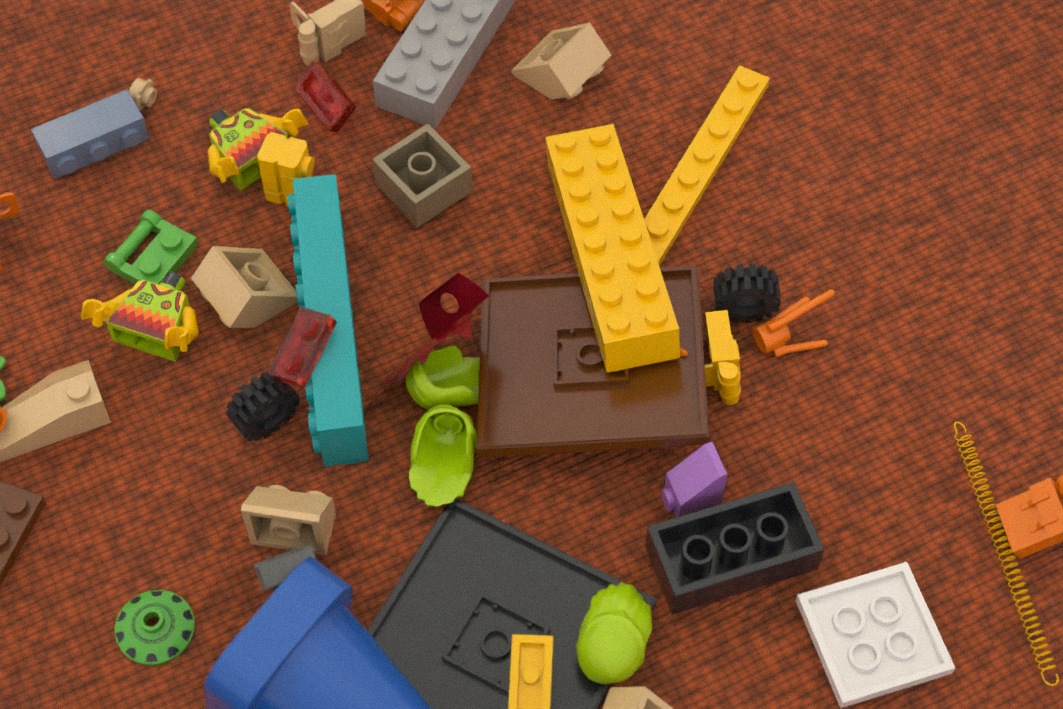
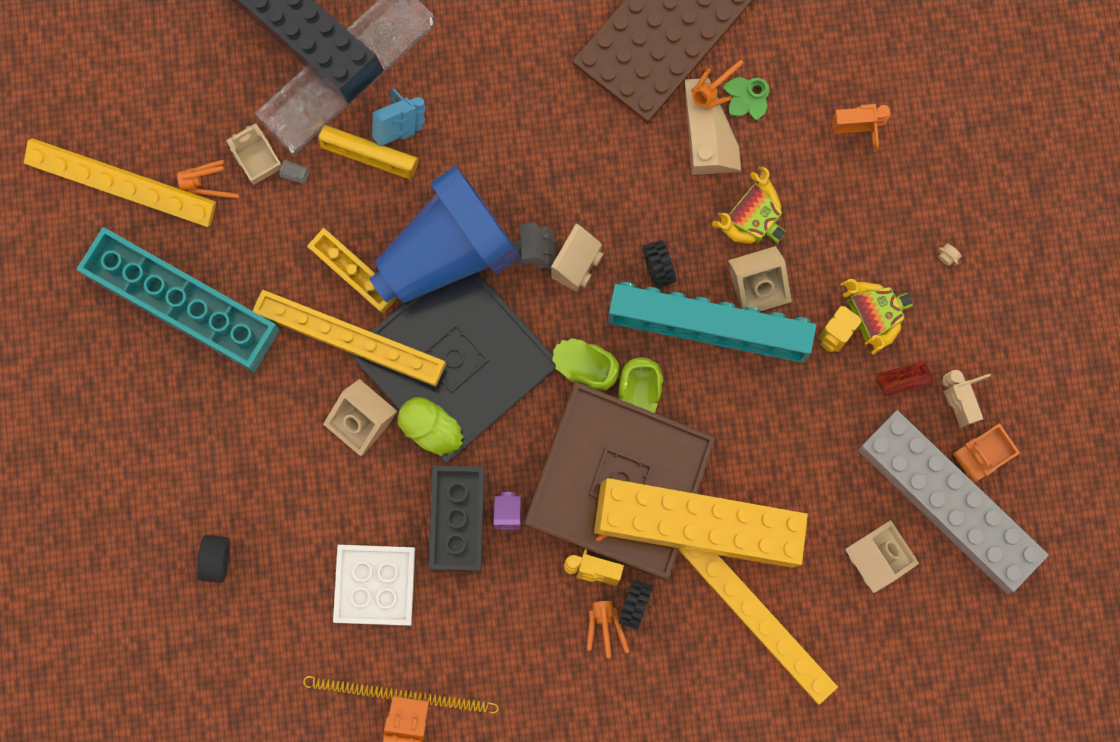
camera: 110 degrees right, 20 degrees up
(90, 134) = (921, 211): sand blue brick -> none
(160, 642) = (539, 178): bright green dish -> none
(163, 254) = (806, 235): bright green plate -> none
(302, 347) = (677, 291): clear red plate -> none
(422, 175) = (808, 421): dark tan brick -> none
(442, 323) = (663, 384): dark red piece -> none

